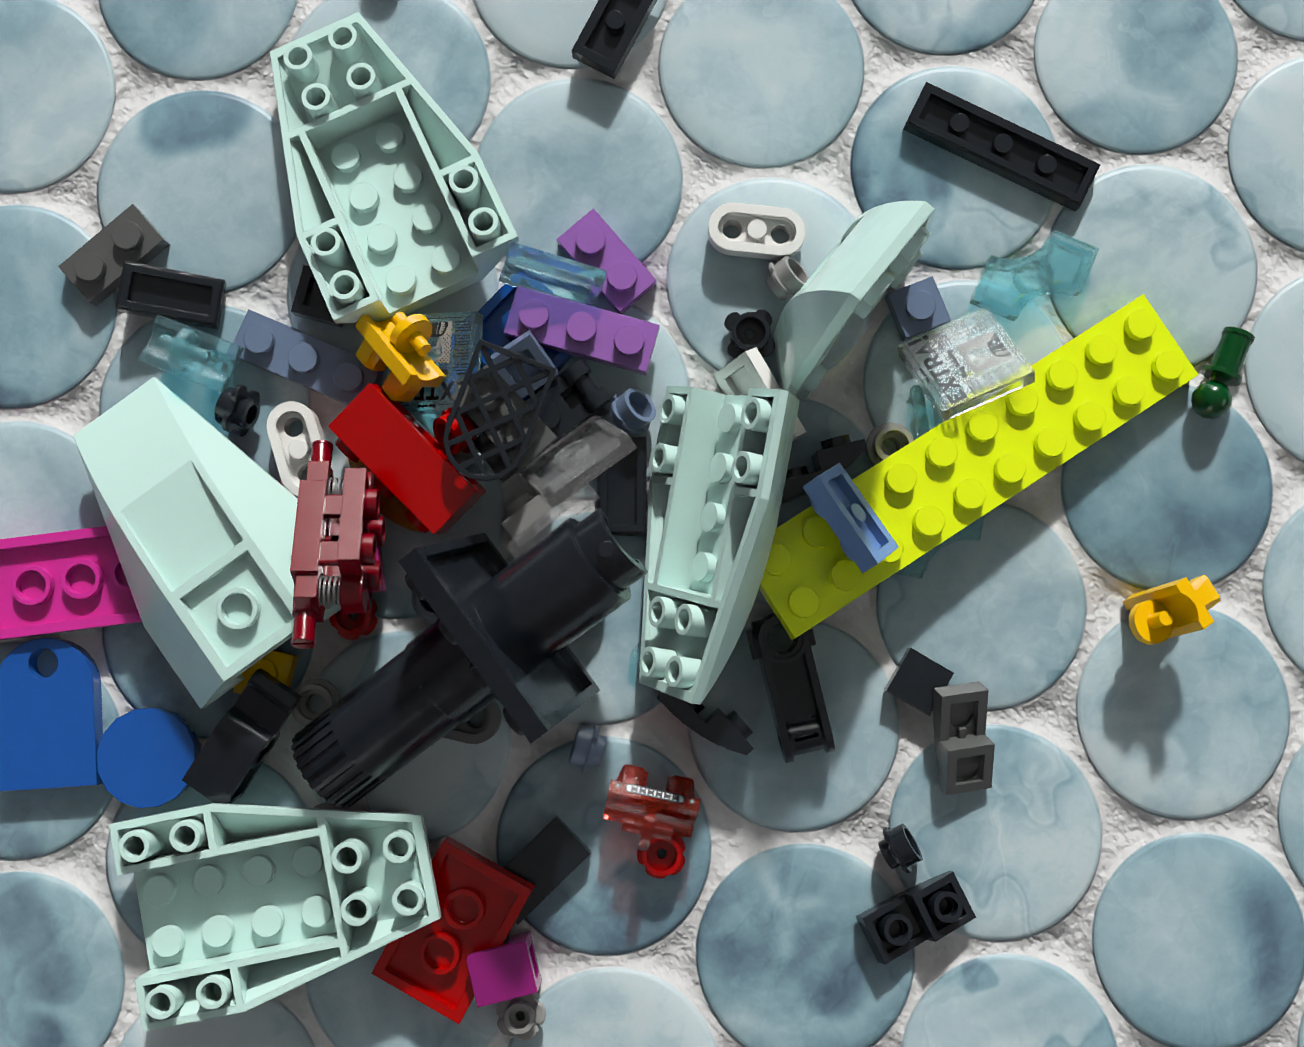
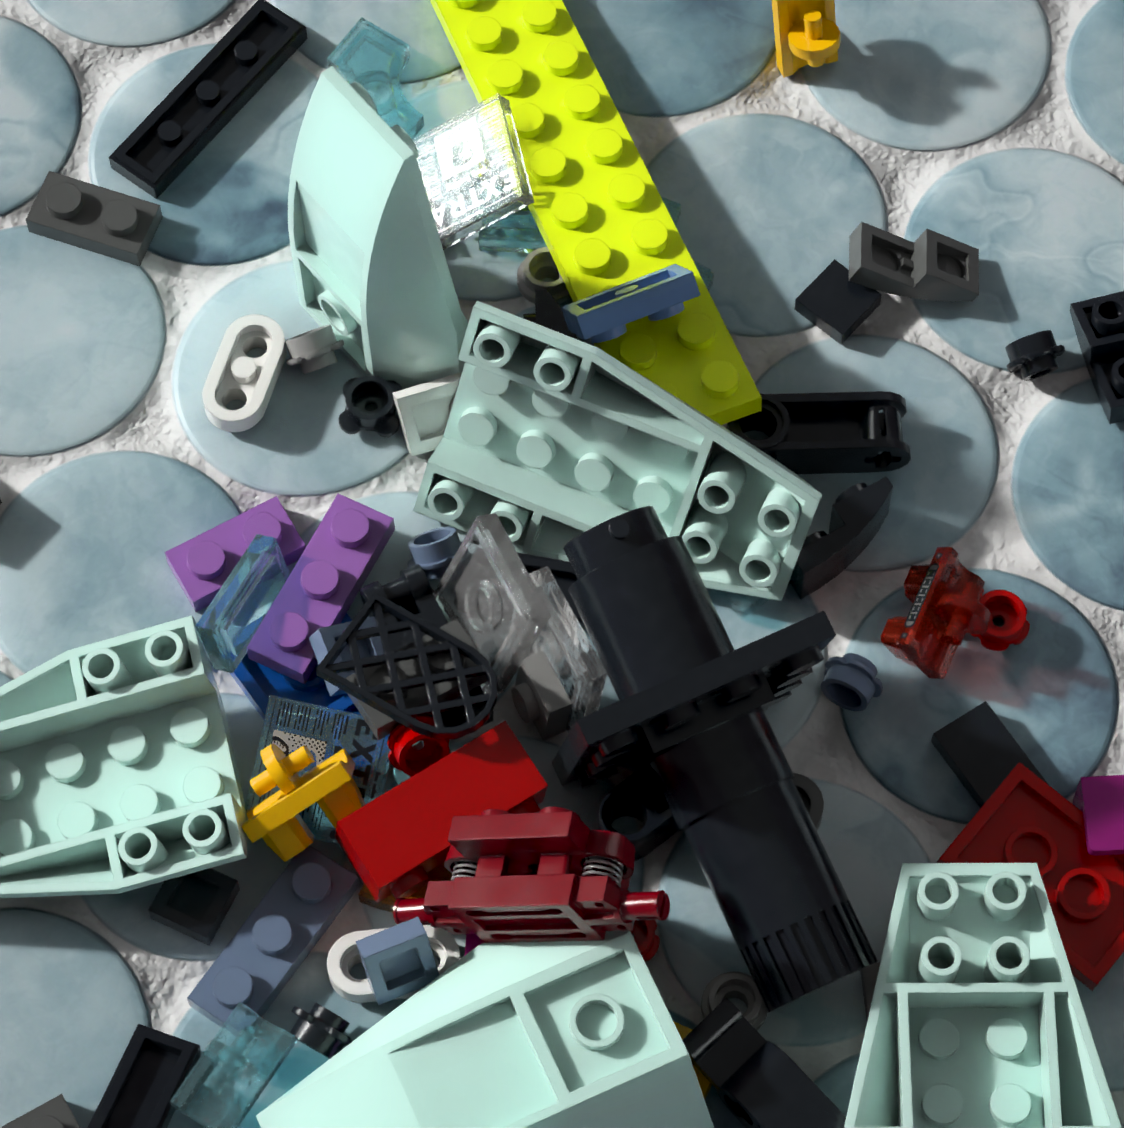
camera: 80 degrees left, 20 degrees down
(283, 451) = (398, 960): none -> sand blue plate
(872, 85) = (94, 218): none -> dark grey plate

